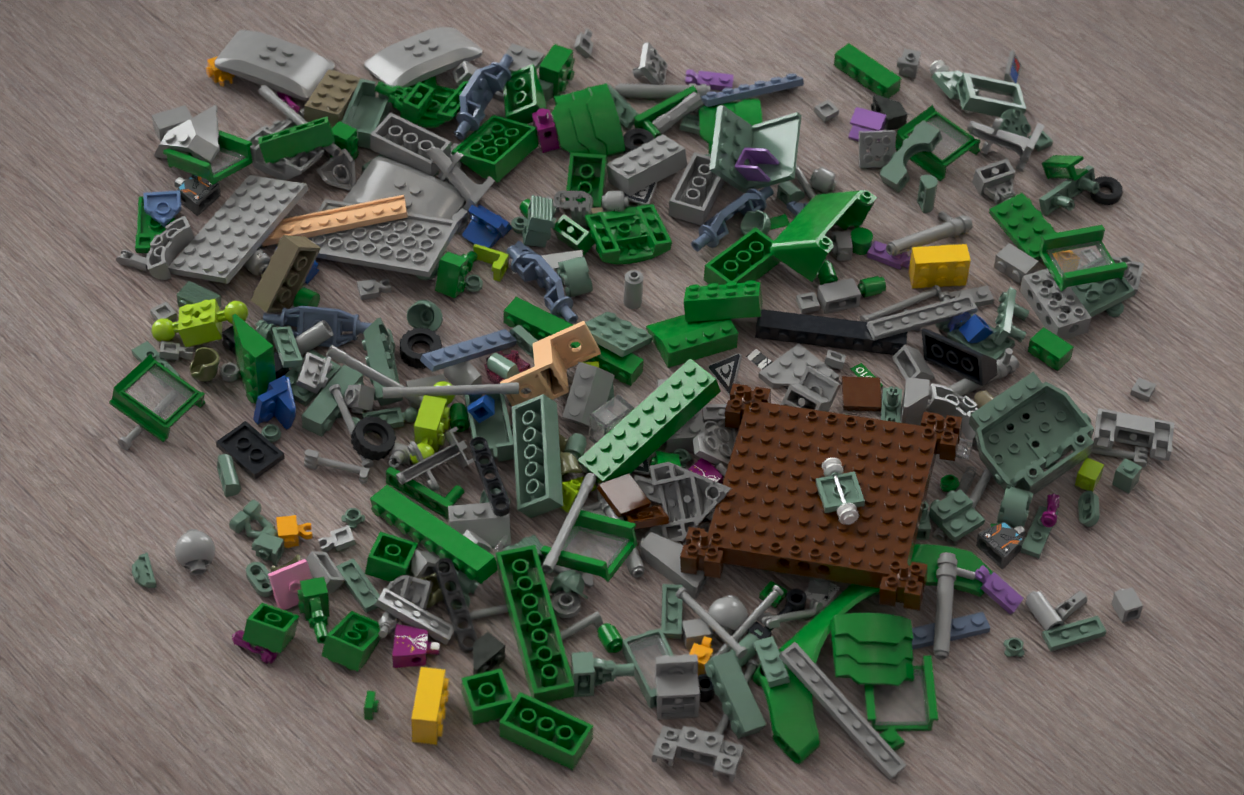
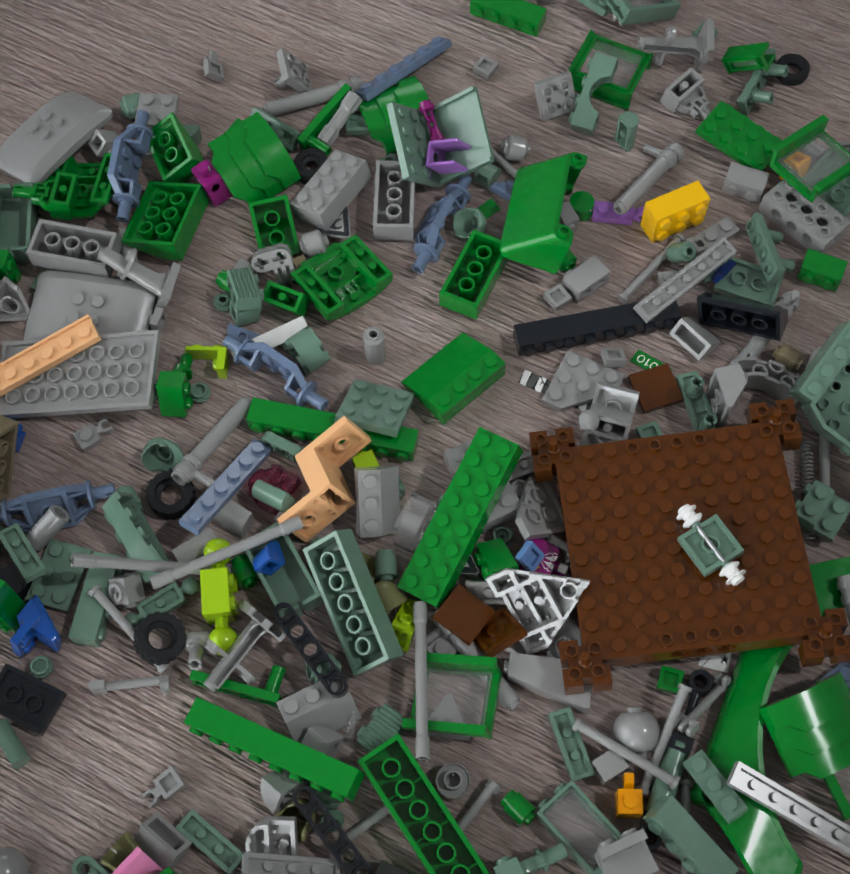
camera: 15 degrees left, 15 degrees up
(251, 512) = (50, 790): sand green piece -> none
(269, 547) = (89, 830): sand green brick -> none
(289, 530) = (105, 799): light orange brick -> none
(306, 297) = (24, 479): green piece -> none
(313, 372) = (62, 579): light grey bracket -> none
(353, 513) = (170, 742): sand green plate -> none
(390, 557) = (235, 796): green brick -> none
(448, 326) = (193, 463): none -> light grey cylinder
(485, 227) = (189, 320): blue piece -> none
(498, 51) = (129, 105): none -> sand green head
(557, 68) = (197, 106): green brick -> none
(568, 581) = (449, 755): sand green piece -> none
(696, 465) = (530, 556): none -> medium blue plate
(716, 81) = (359, 67): medium lavender plate -> none
(723, 301) = (475, 330): green brick -> none
(726, 371) = (509, 412): black piece -> none
(754, 122) = (426, 107): none -> magenta piece
(786, 388) = (589, 420): none -> light grey tile
(866, 121) = (531, 70): medium lavender piece -> none
(871, 286) = (615, 256): green brick -> none
(895, 113) = (548, 50): pearl dark grey slope -> none
(930, 297) = (681, 252): none -> sand green brick
(949, 482) = (794, 468): green plate -> none
(975, 329) = (743, 275): blue brick -> none
(1015, 122) = (677, 18): sand green plate -> none

